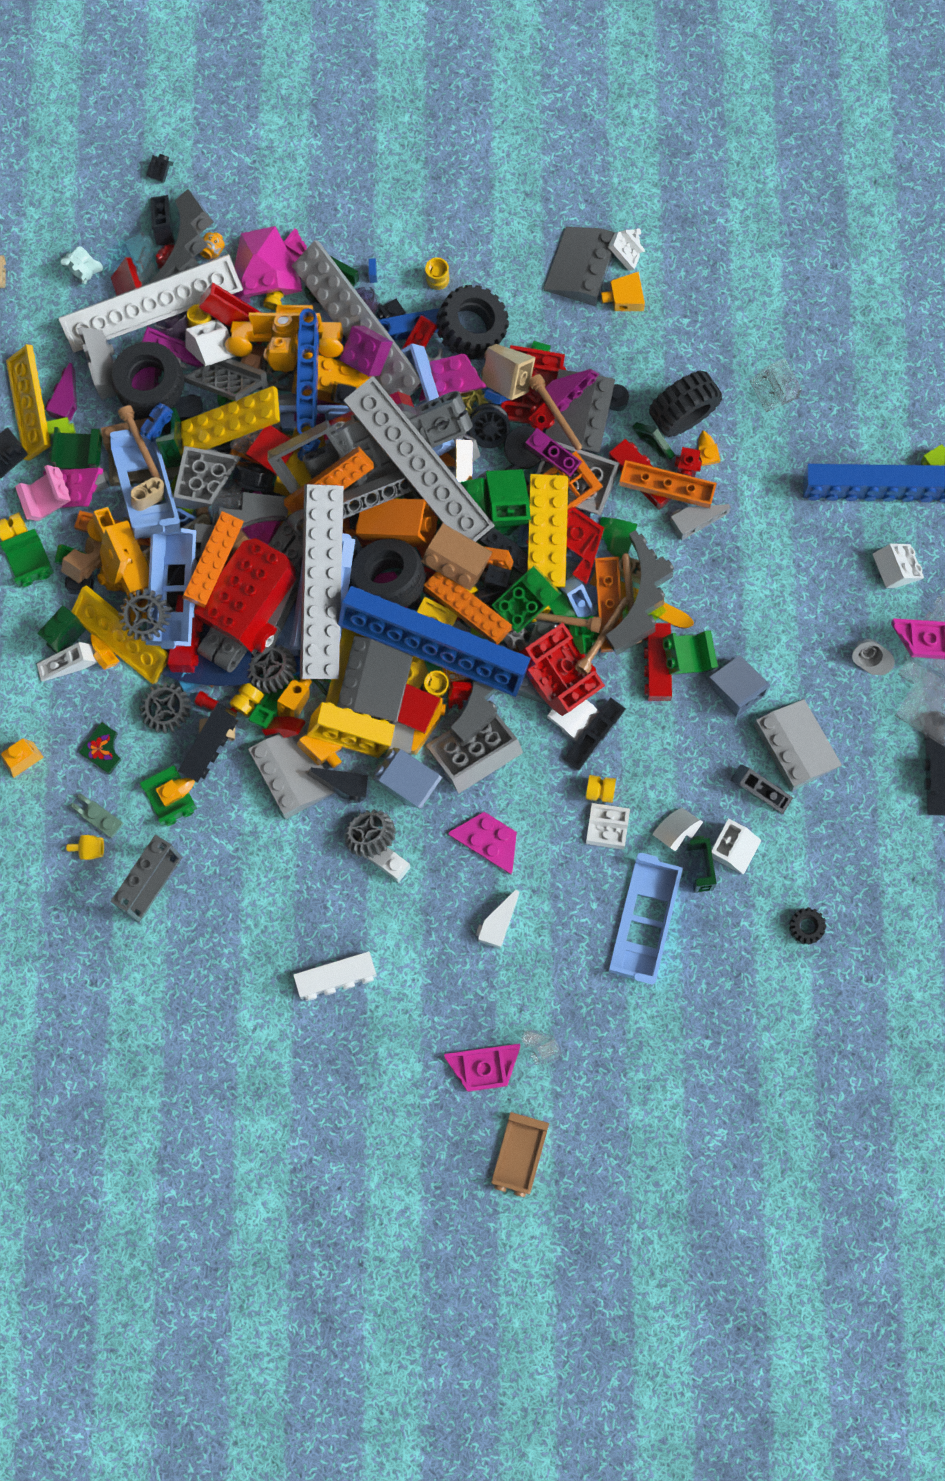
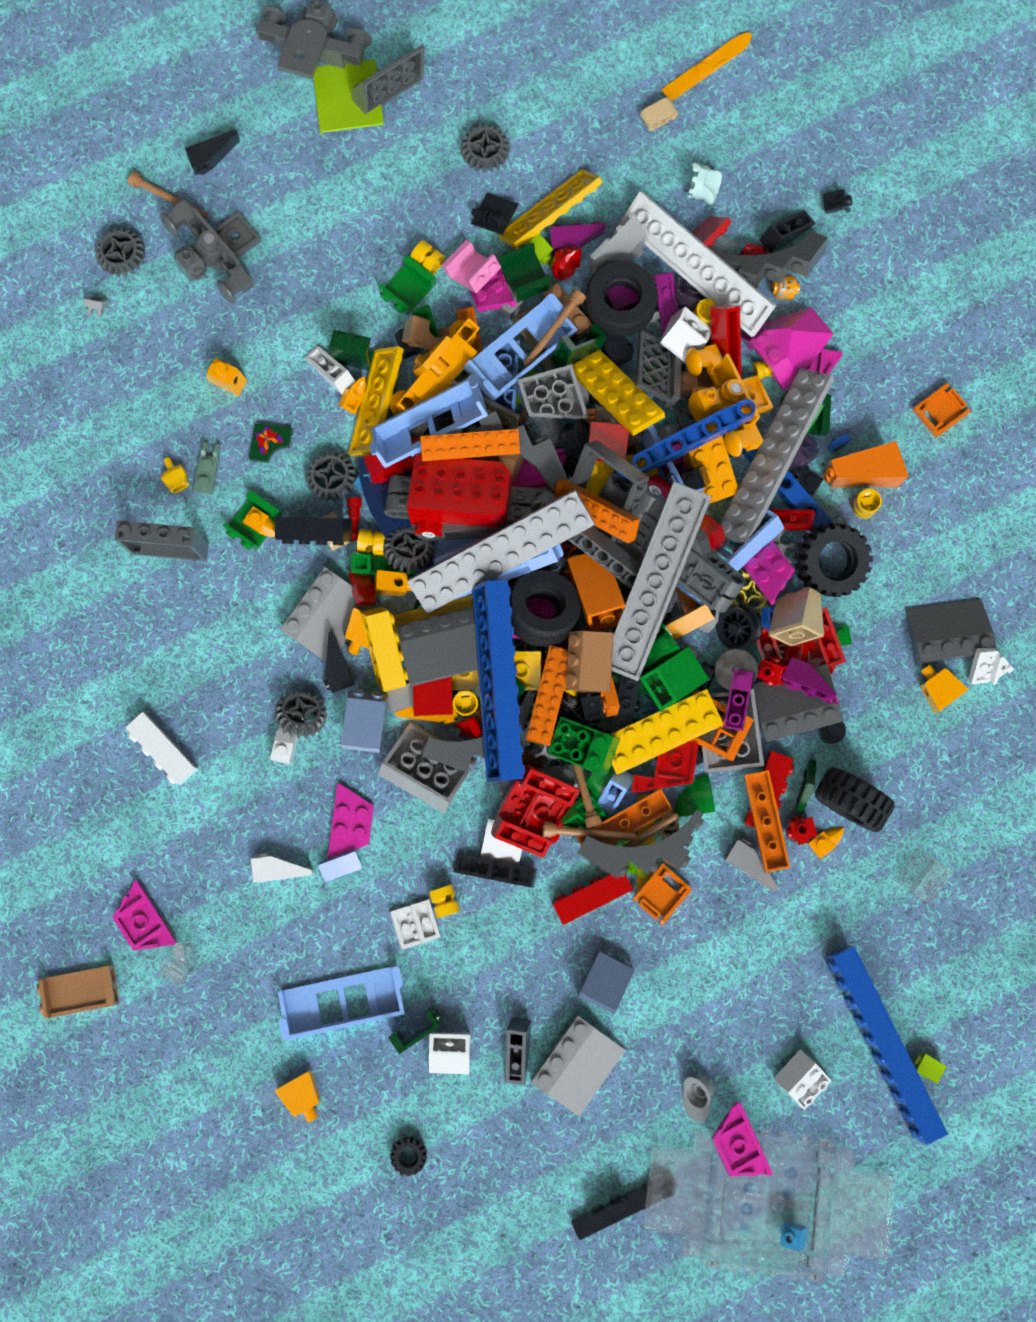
camera: 60 degrees right, 5 degrees up
(84, 413) = (565, 262): none -> red hair
(140, 251) = (743, 228): clear light blue slope -> none
(150, 491) = (510, 362): tan beam -> none
(150, 608) = (392, 397): dark grey gear -> none
(161, 415) = (590, 329): blue hinge -> none
(366, 350) = (748, 477): magenta brick -> none
(388, 174) = (943, 408): none -> orange container
(409, 253) = (868, 468): none -> orange slope
(523, 865) = (340, 865): none -> tile
(537, 384) = (799, 651): medium nougat piece -> none
(676, 827) = (439, 990): white slope -> none
(688, 607) = (659, 897): none -> orange container
(690, 653) = (613, 921): green panel -> none
(710, 995) = (300, 1096): none -> light orange torso

